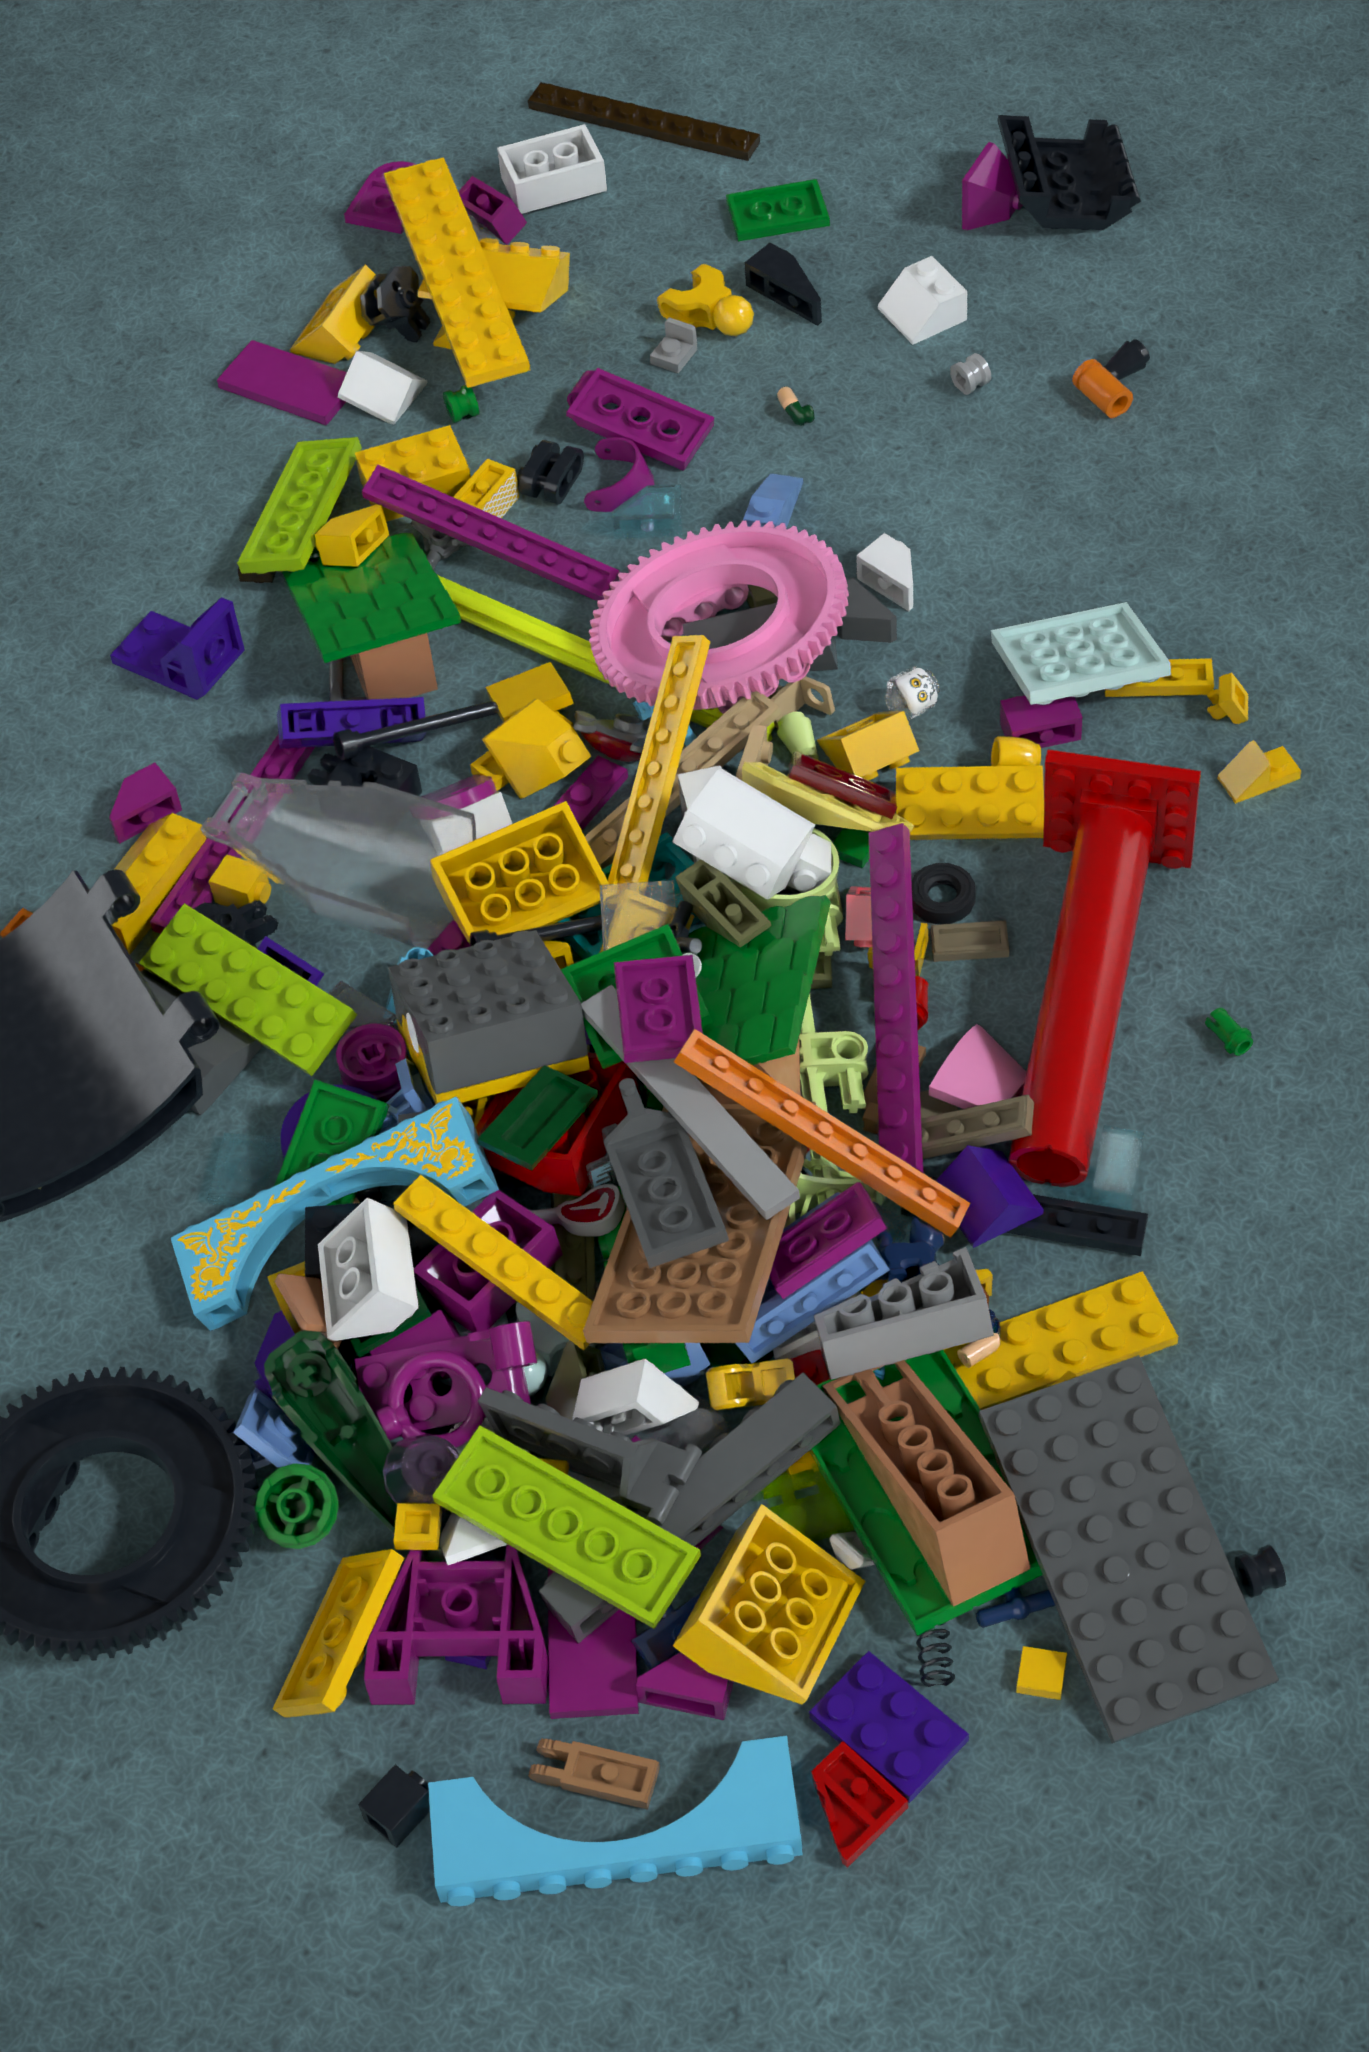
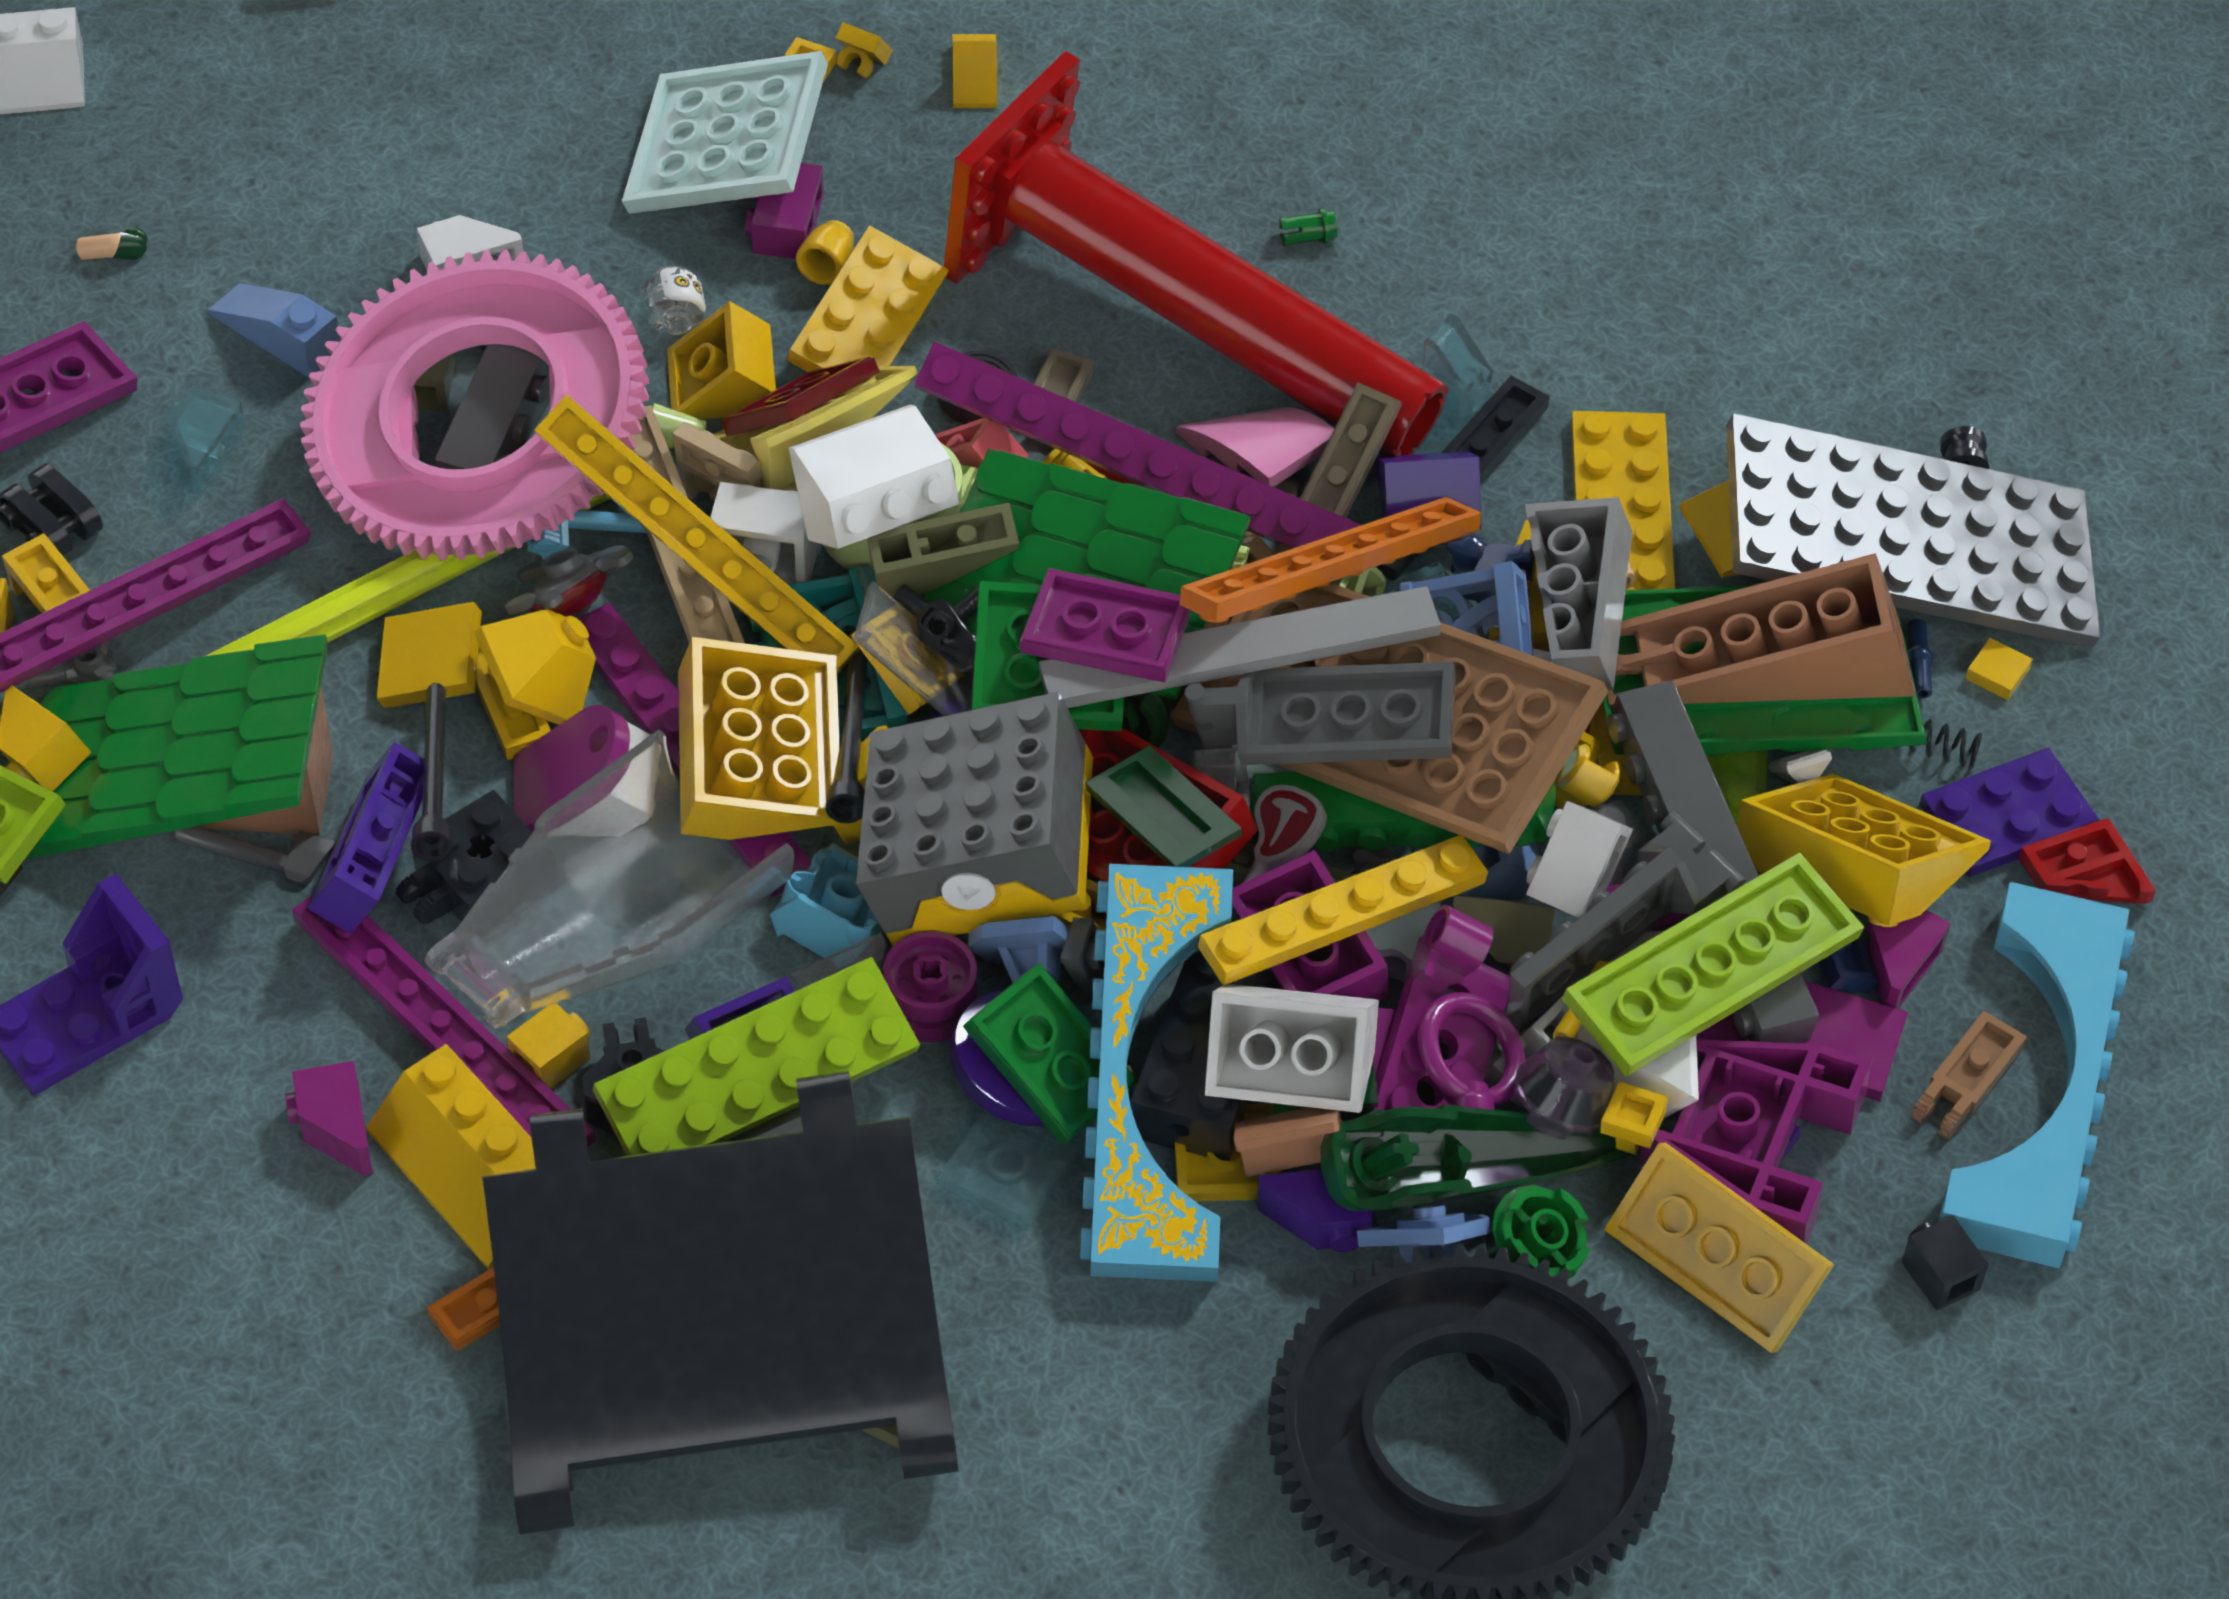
camera: 75 degrees left, 0 degrees up
(632, 483) = (101, 415): magenta piece -> none
(824, 1239) = (1471, 585): magenta tile -> none
(970, 373) = (193, 66): light grey wheel -> none

